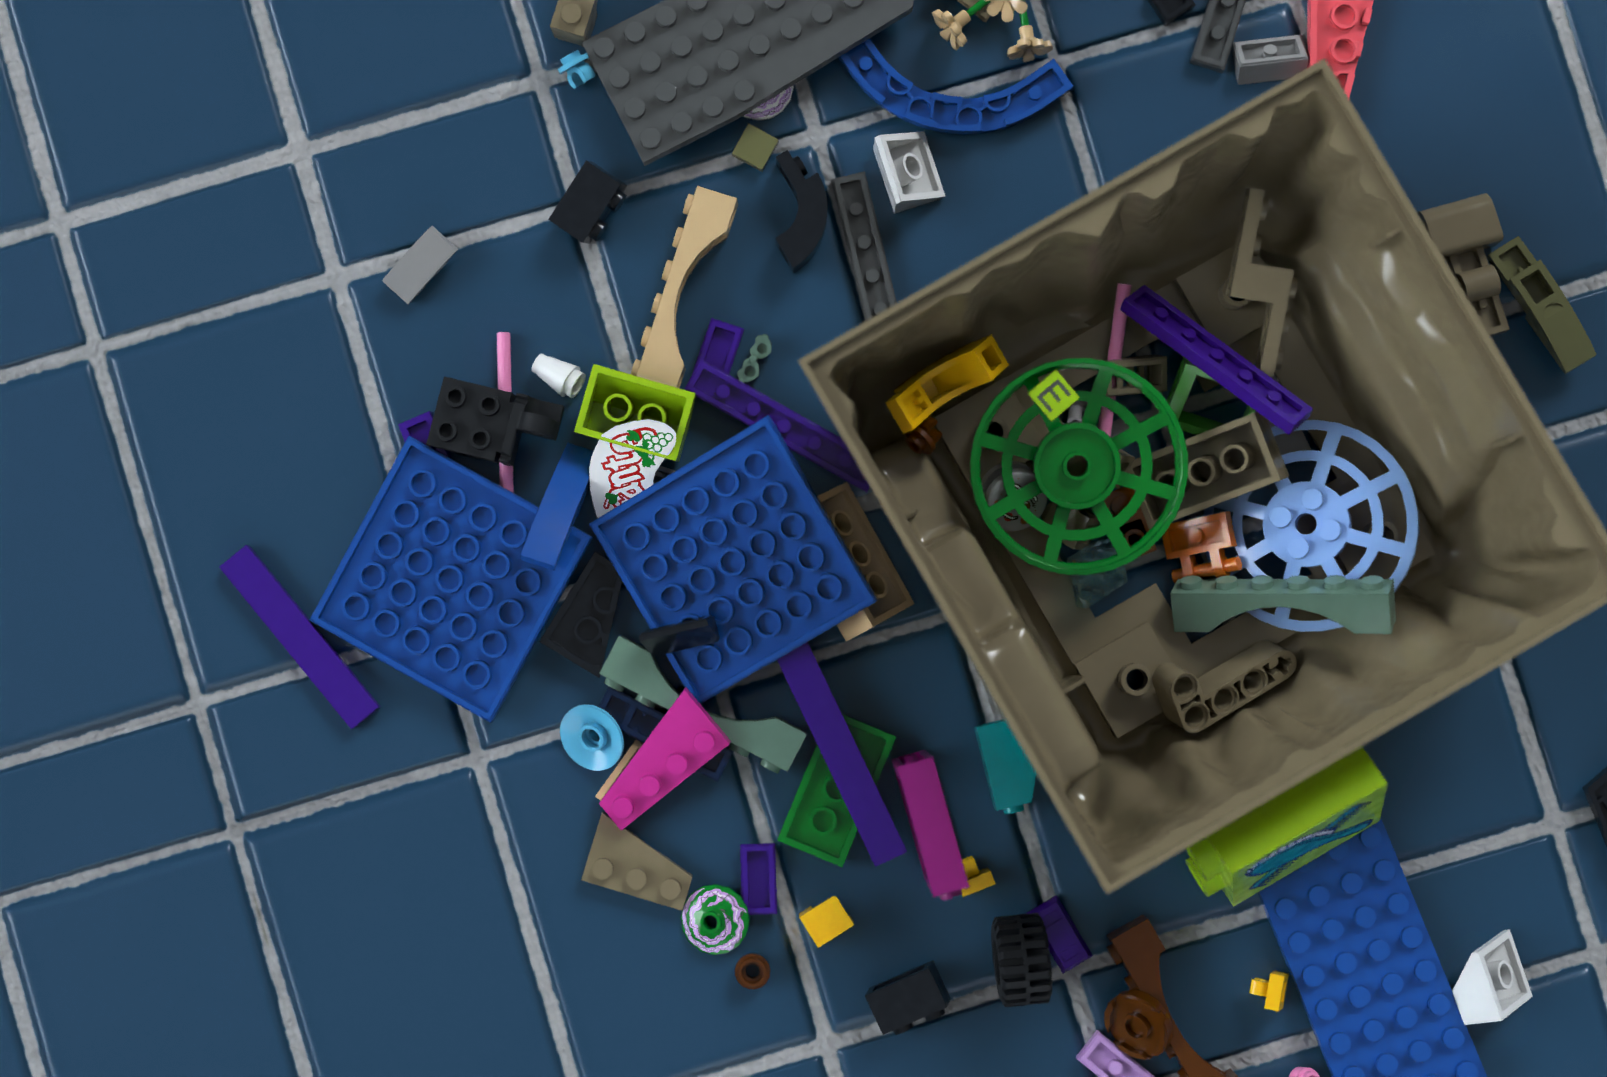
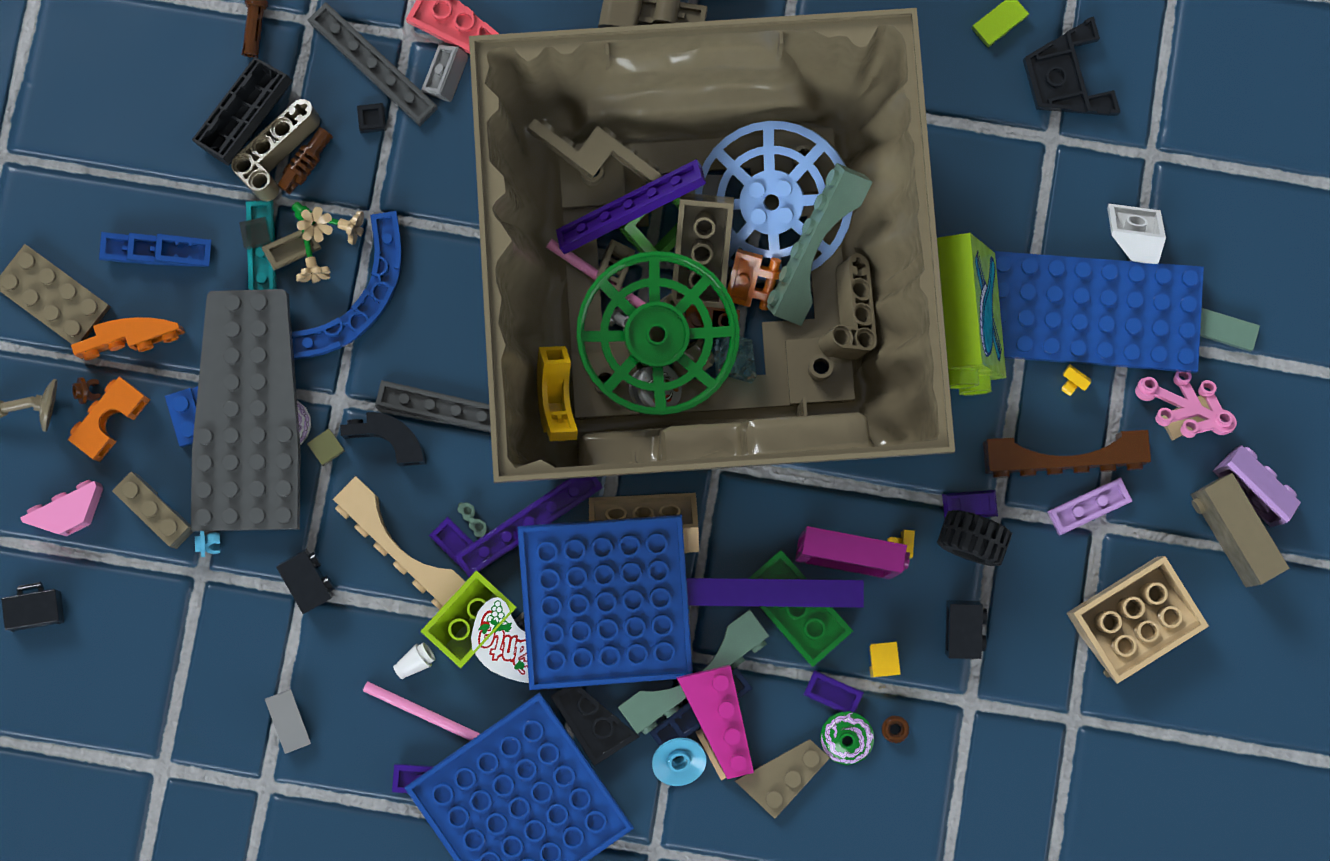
camera: 65 degrees left, 5 degrees down
(489, 421) = (422, 726): black plate -> none
(558, 508) = (508, 704): blue slope -> none
(680, 635) = (639, 663): black slope -> none
(907, 170) = (395, 350): white slope -> none
(924, 437) = (586, 427): reddish brown plate -> none
(1006, 767) = (836, 482): teal slope -> none
(1053, 395) = (601, 325): lime tile -> none
(1138, 1024) = (1056, 480): reddish brown tile -> none

